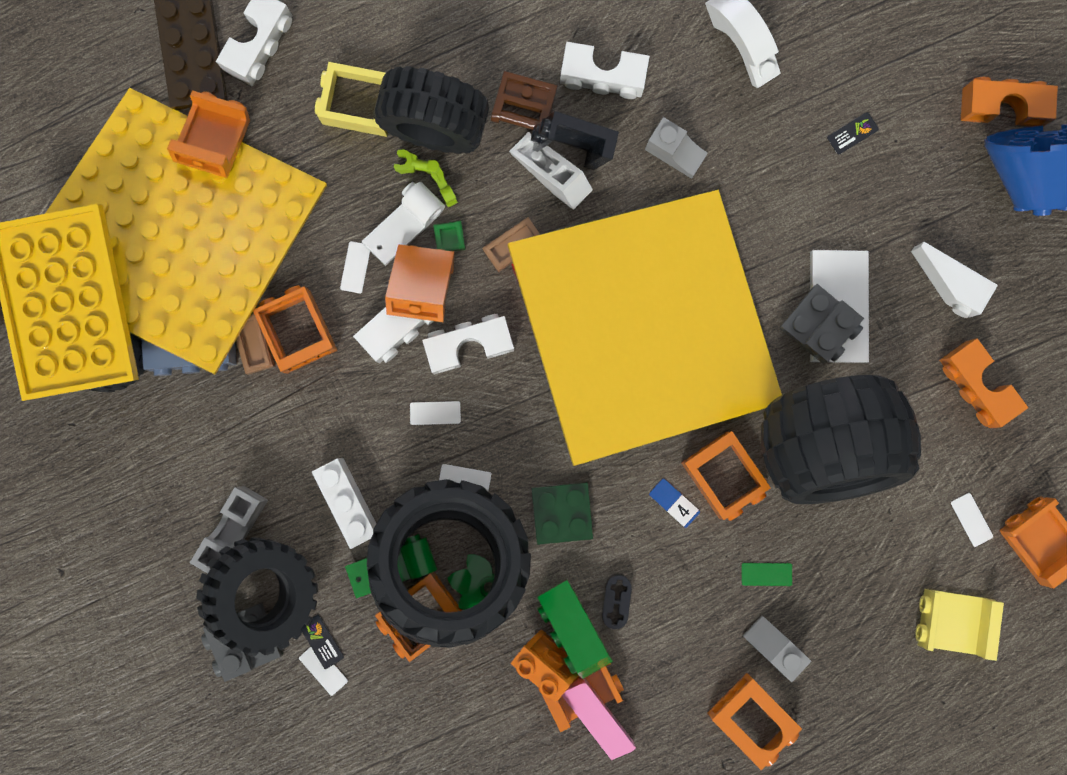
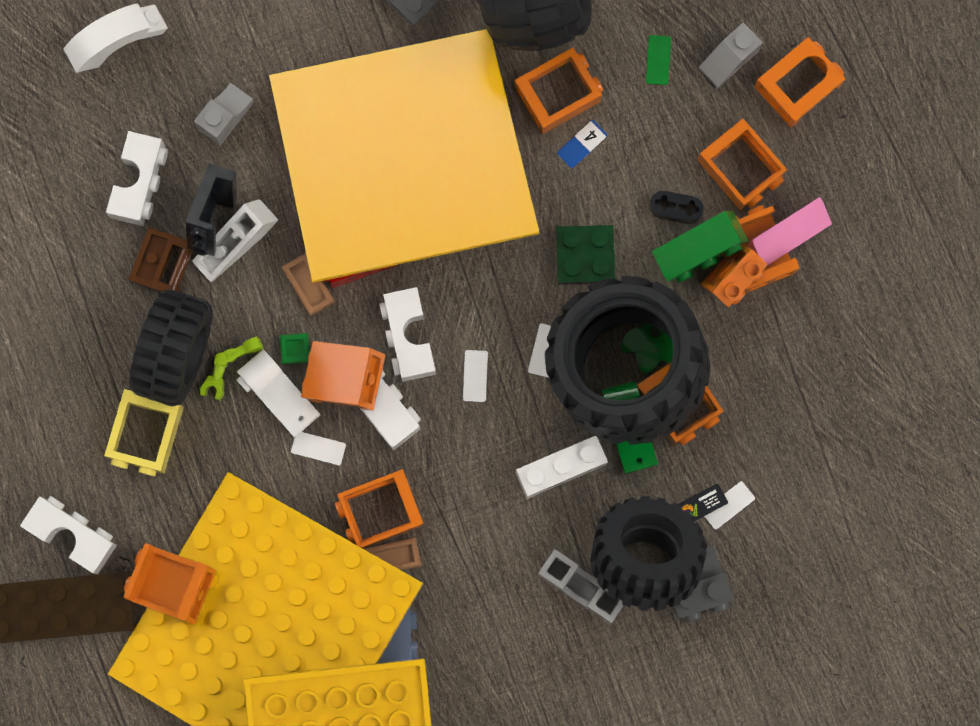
camera: 90 degrees left, 5 degrees down
(680, 685) = (724, 142): none -> orange window

